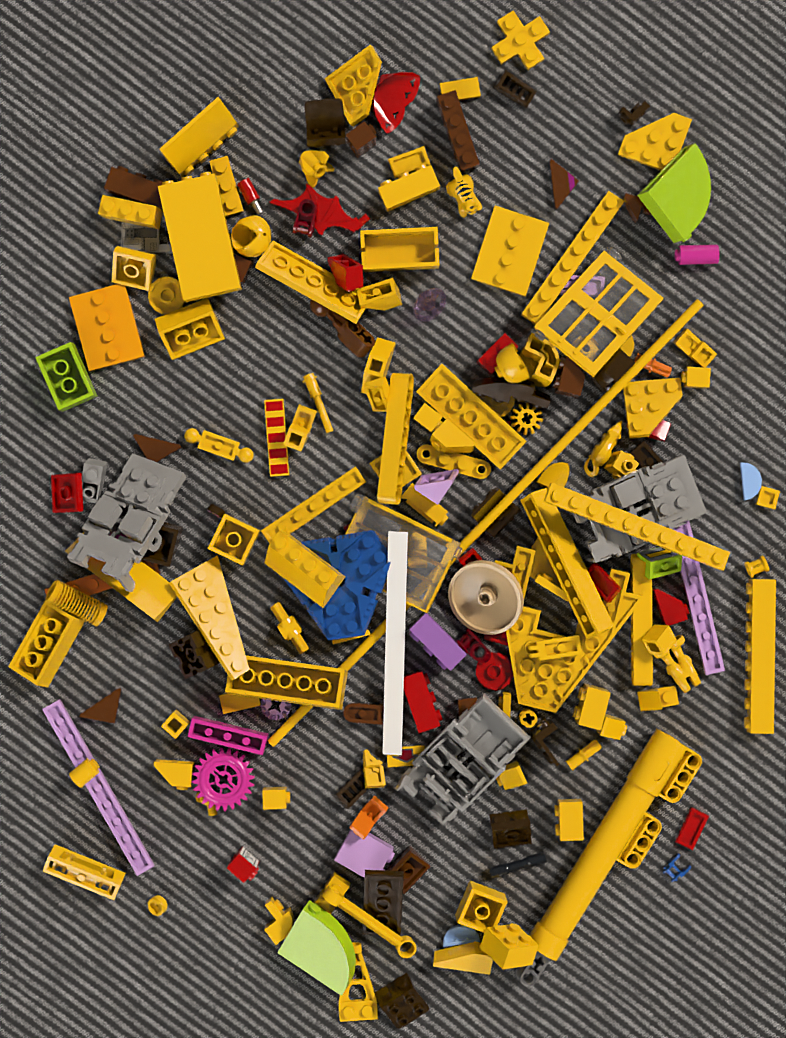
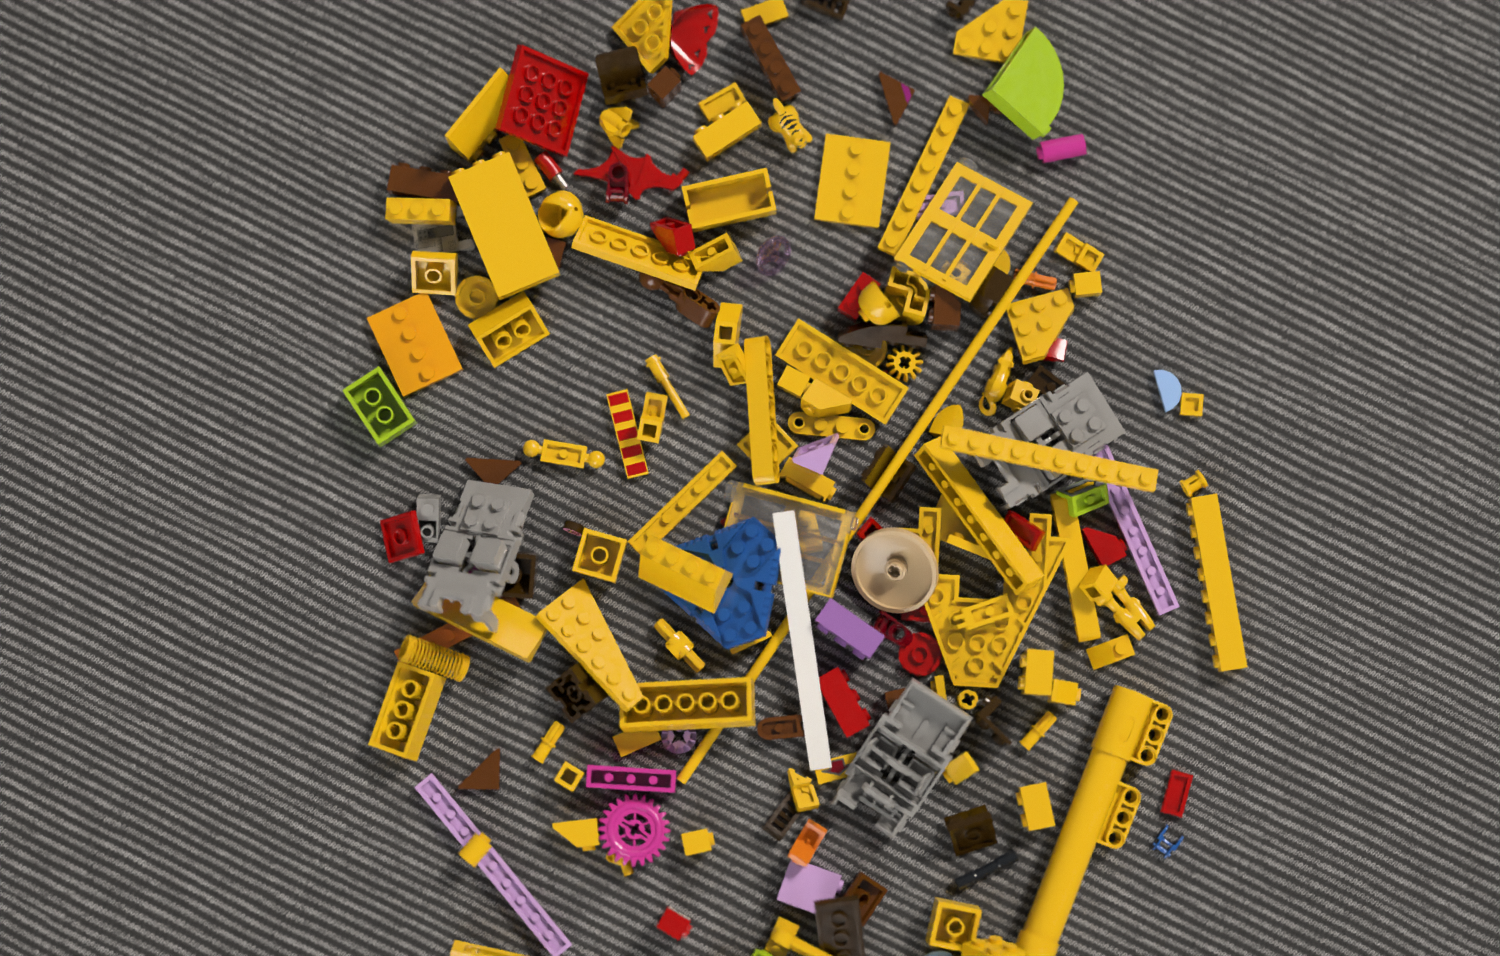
camera: 15 degrees left, 5 degrees down
(163, 690) = (548, 742): none -> yellow axle
(251, 132) = (542, 100): none -> red plate

